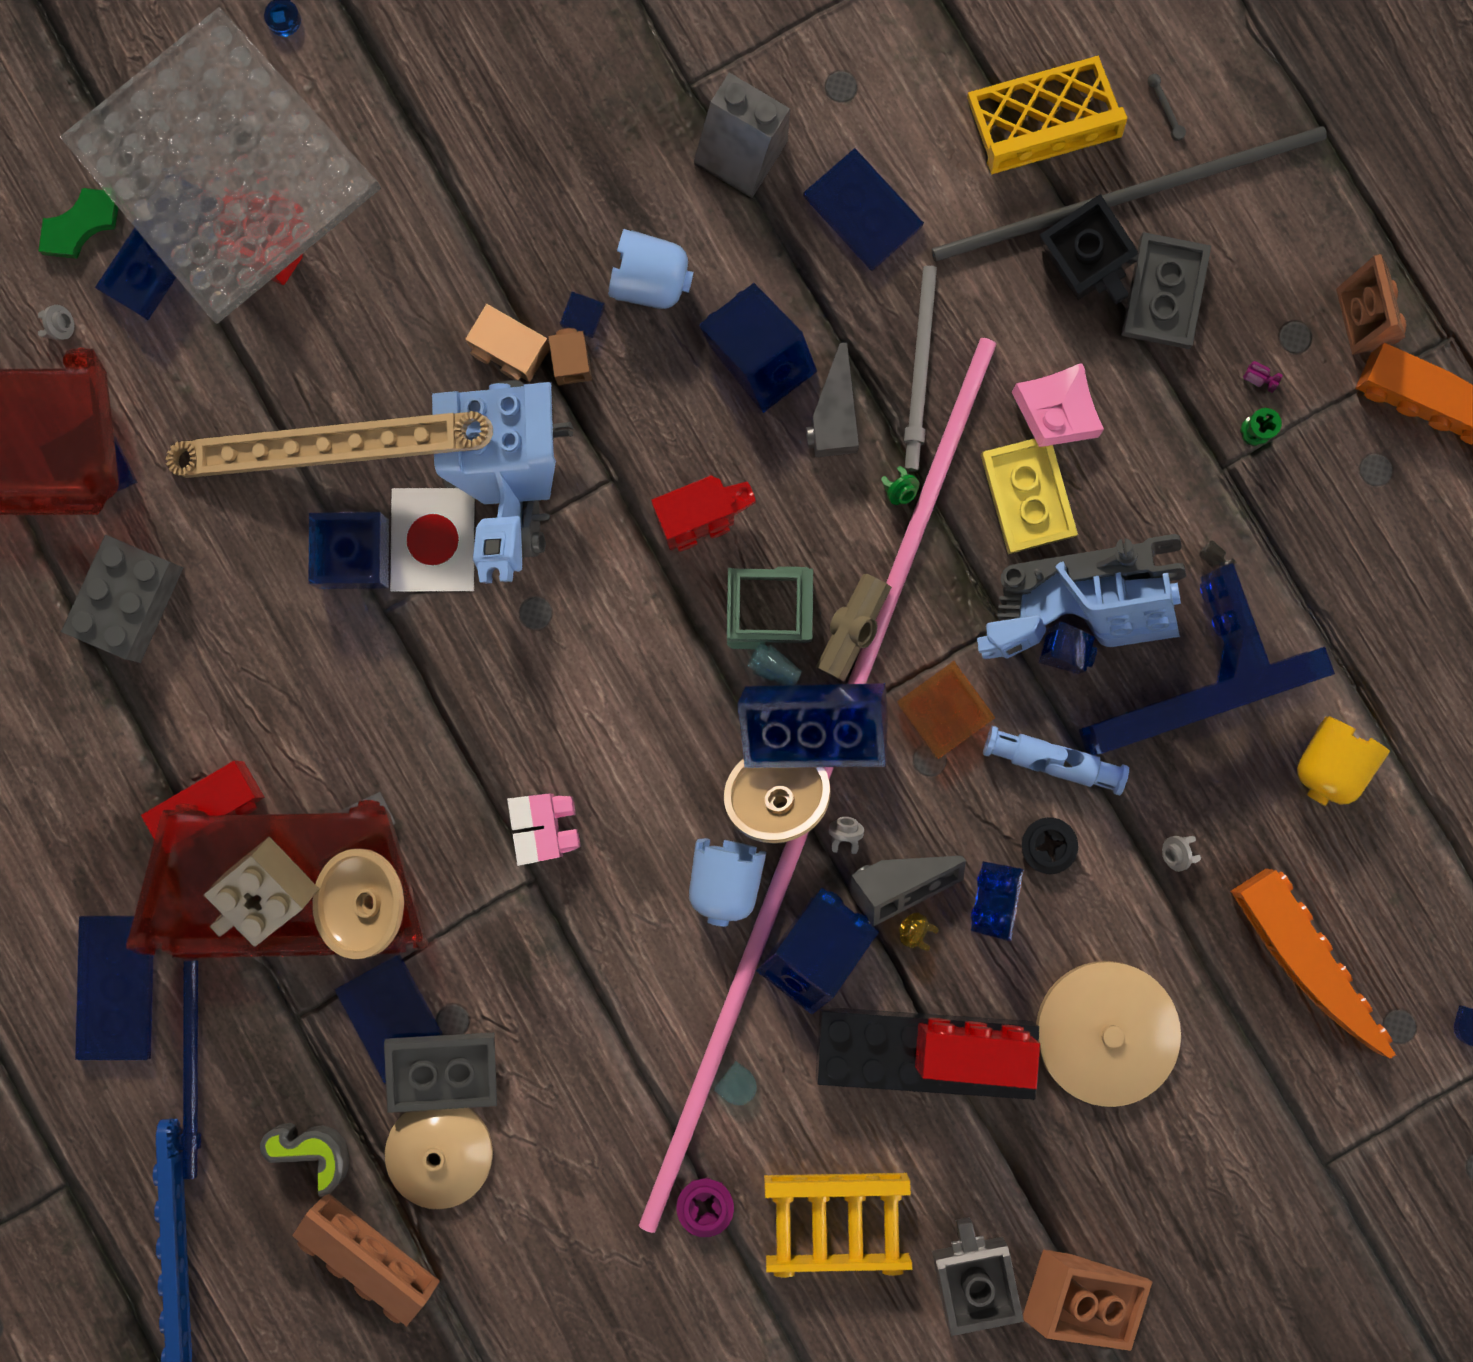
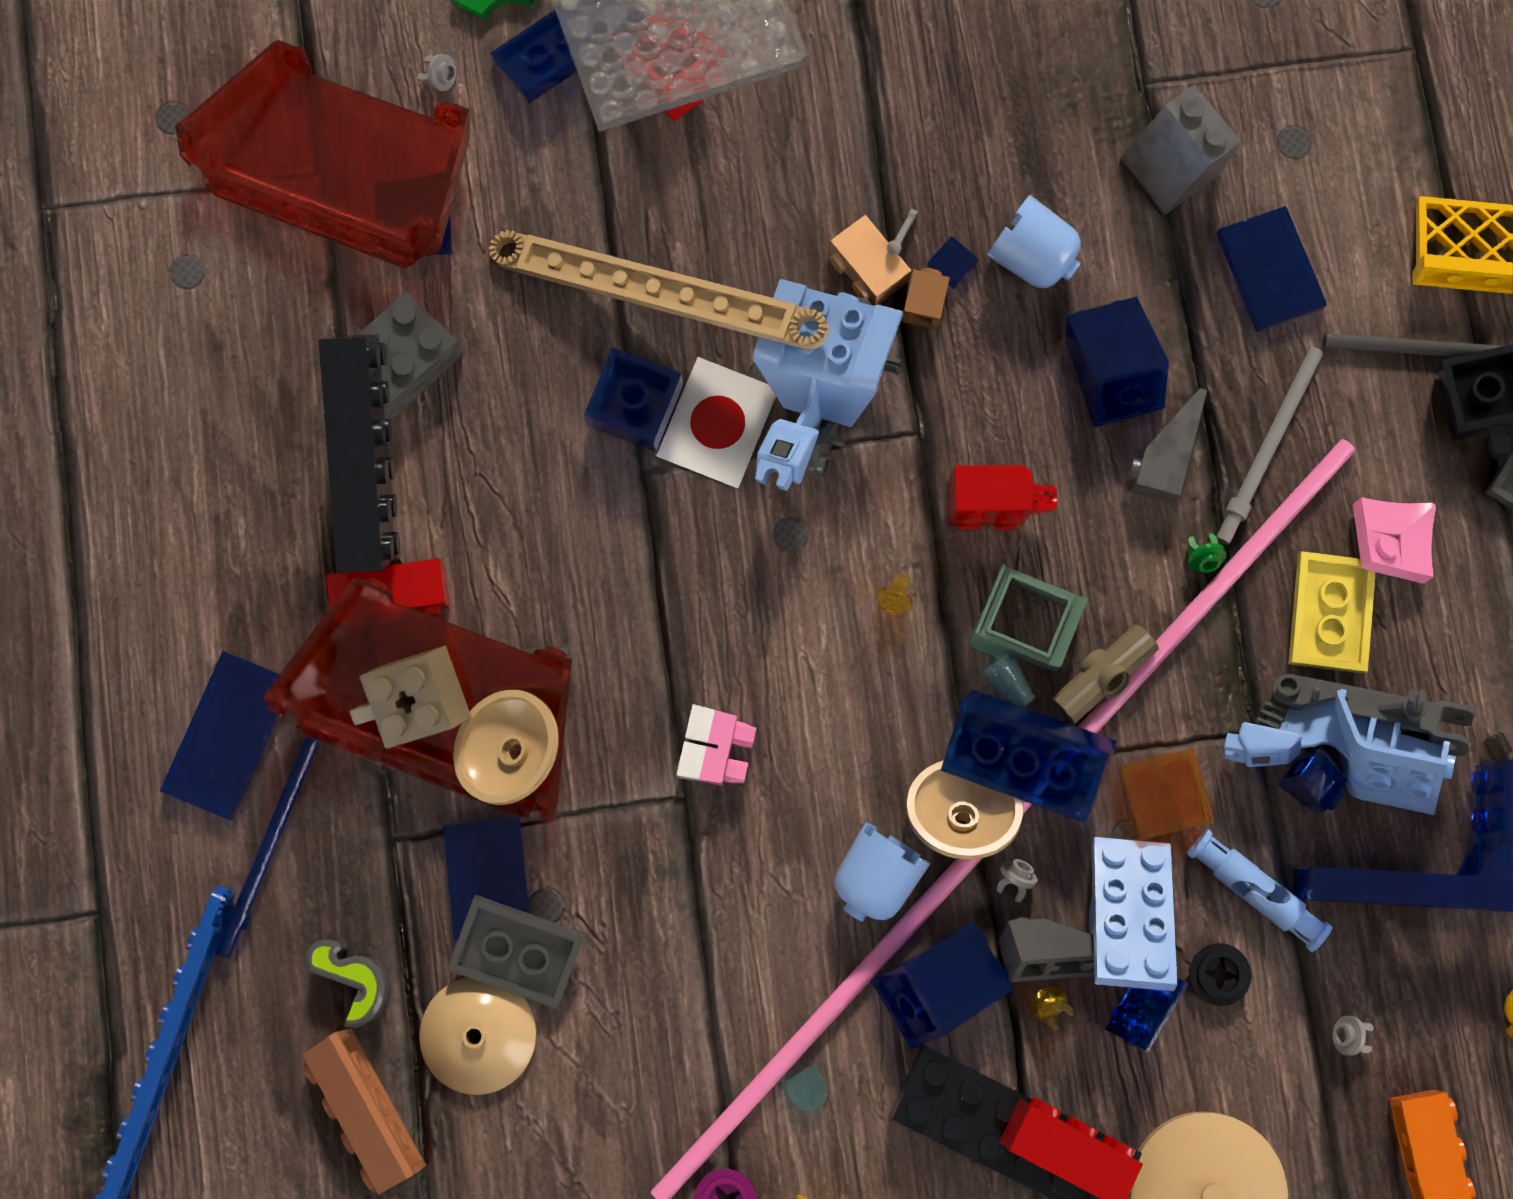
camera: 20 degrees right, 5 degrees down
(120, 697) = (358, 452): none -> black brick
(523, 322) = (894, 246): none -> light grey hinge
(647, 635) = (893, 598): none -> clear yellow plate
(955, 826) = (1133, 914): none -> light blue plate

